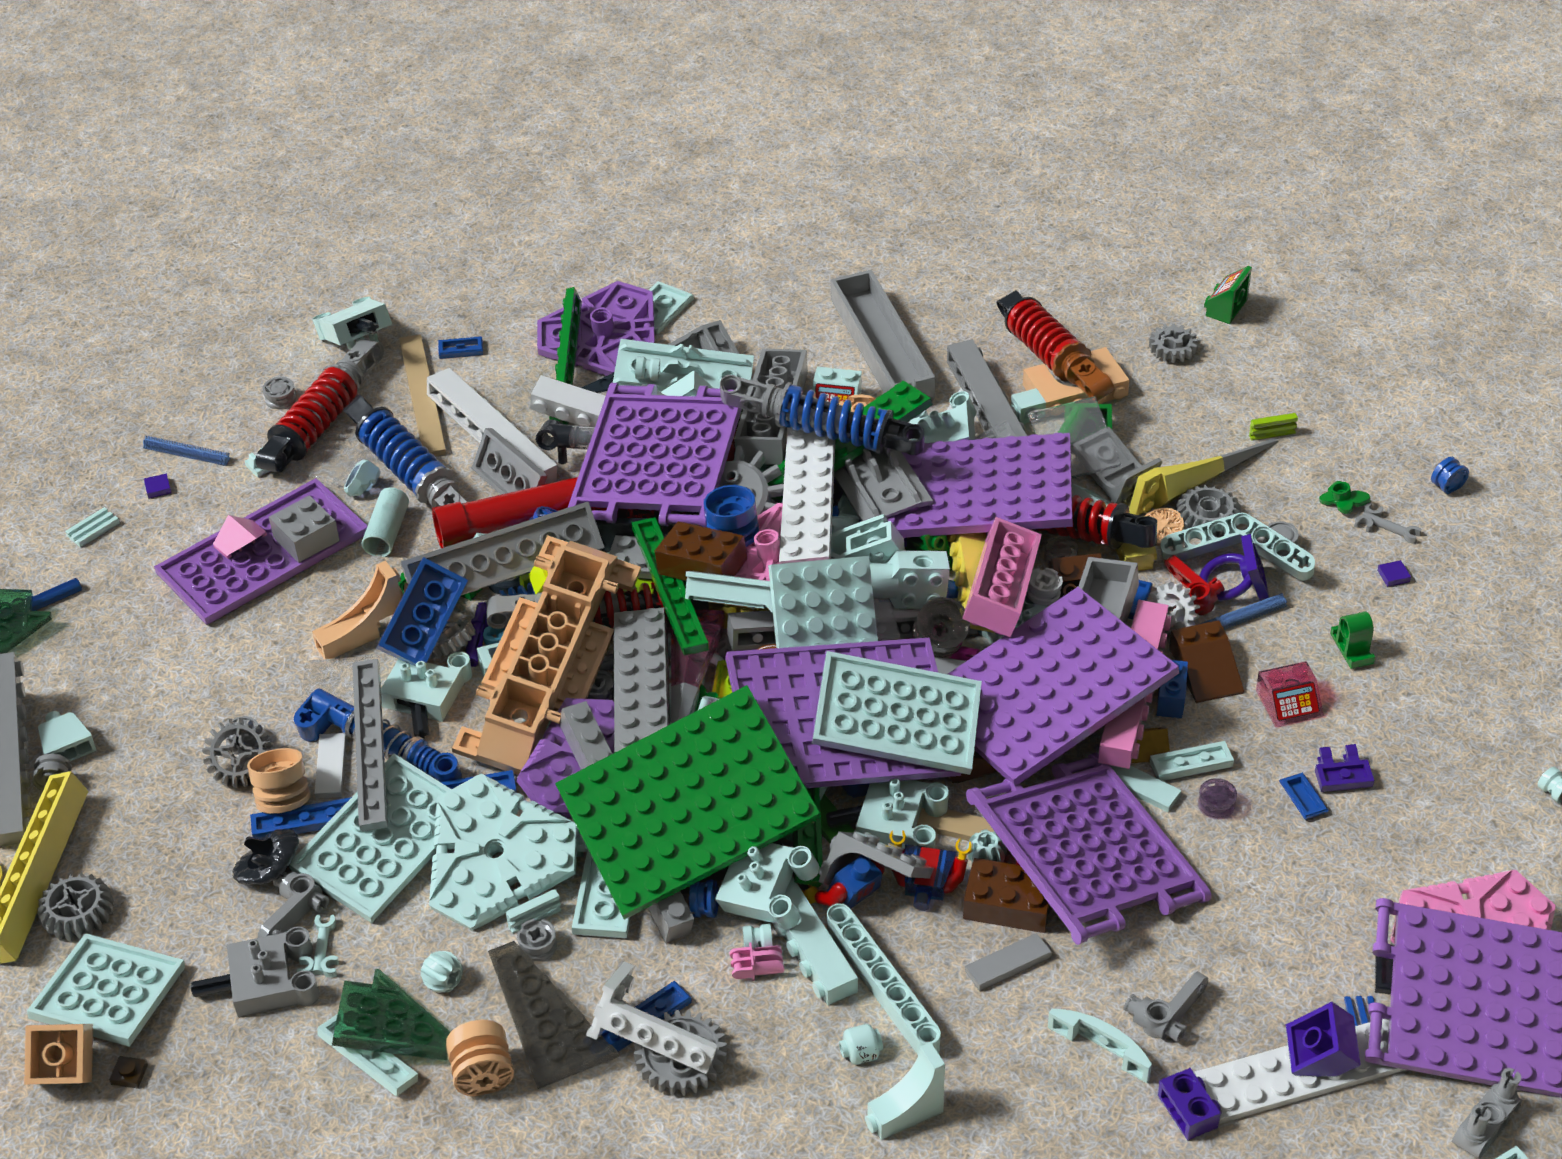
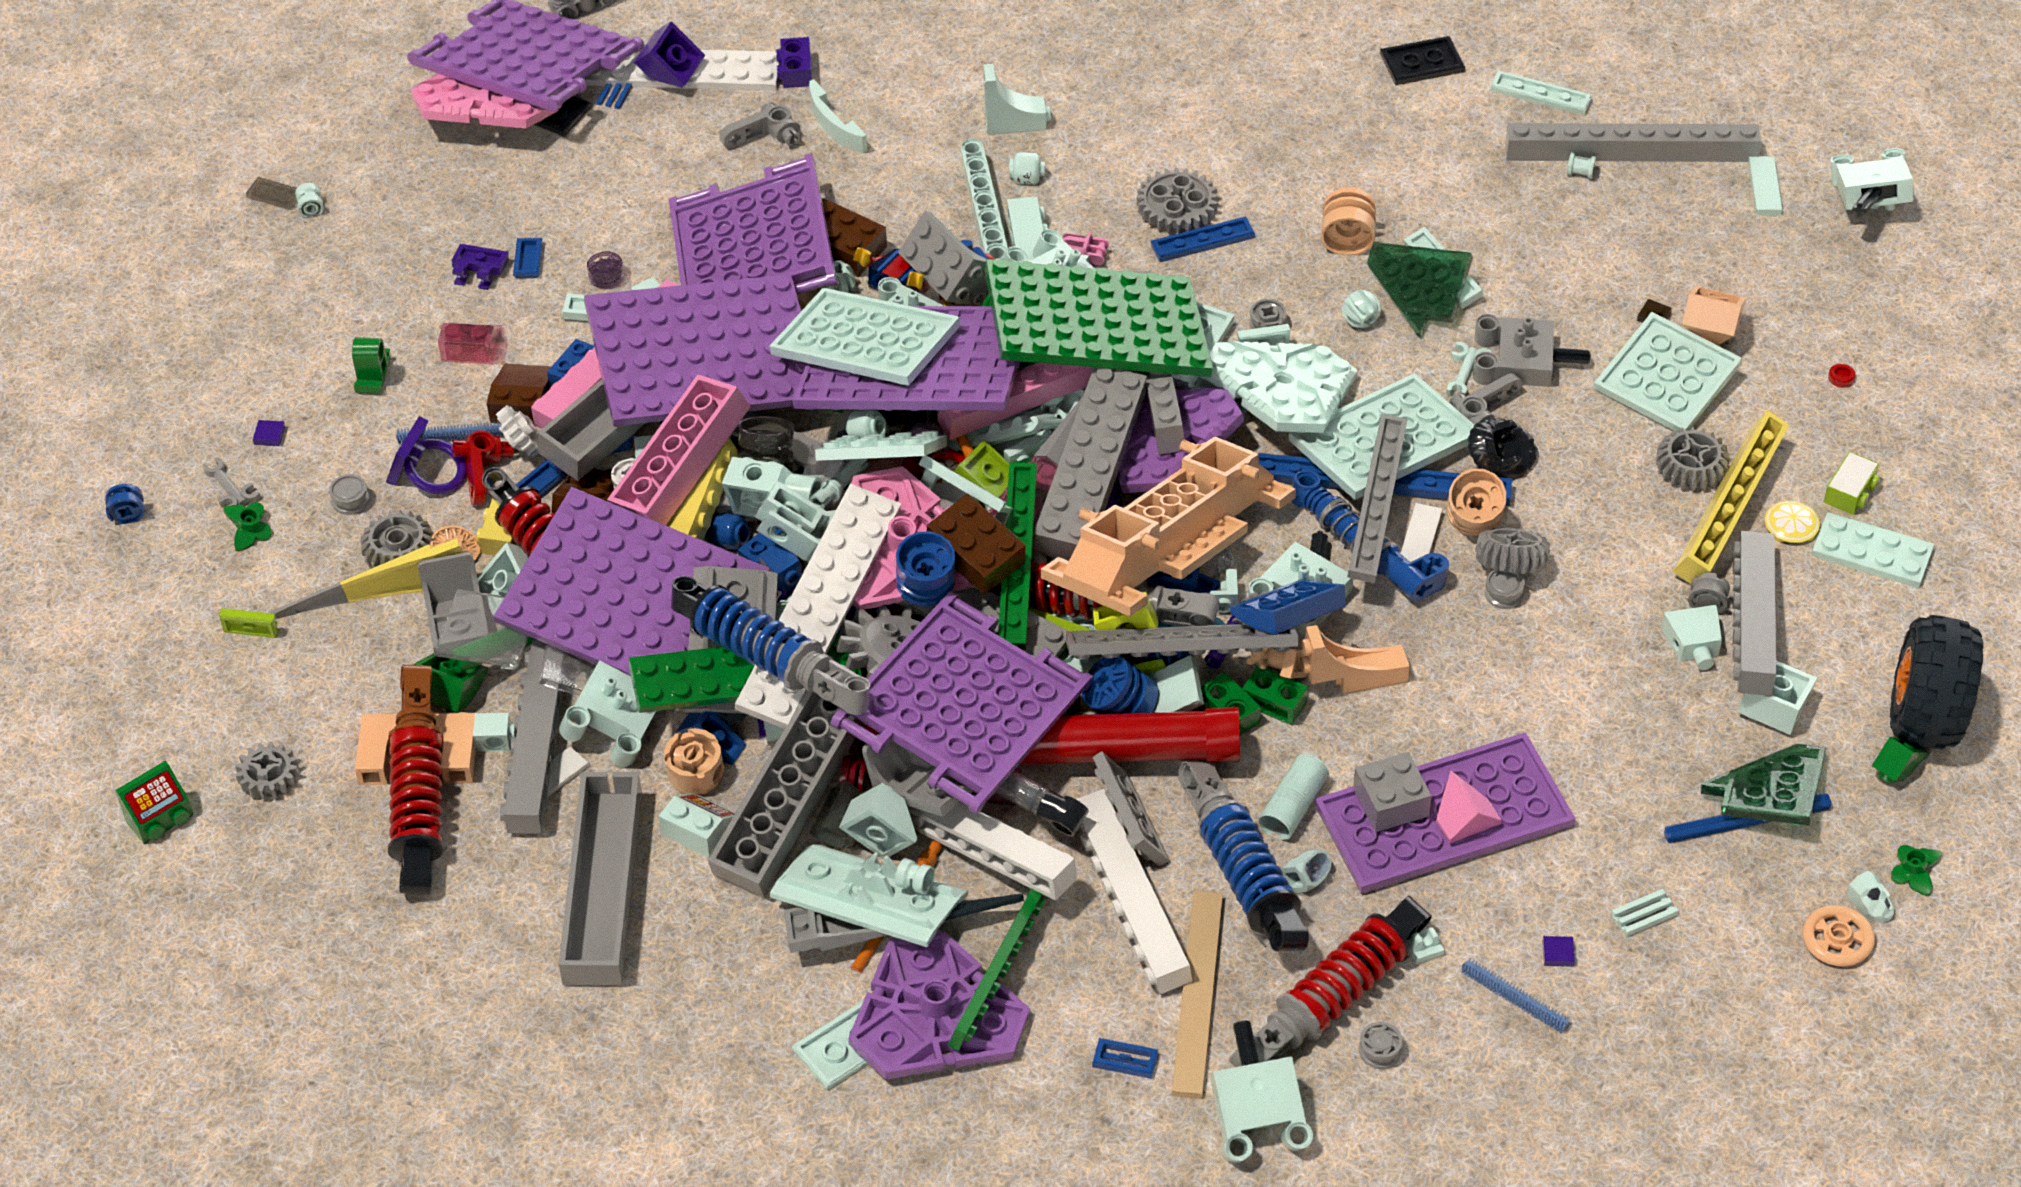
camera: 160 degrees left, 5 degrees up
(546, 1020) = (1282, 250): clear smoke wing -> none
(645, 1029) = (1227, 212): white bracket -> none
(1008, 961) = (873, 199): light grey tile -> none
(1233, 536) = (405, 490): light aqua beam -> none

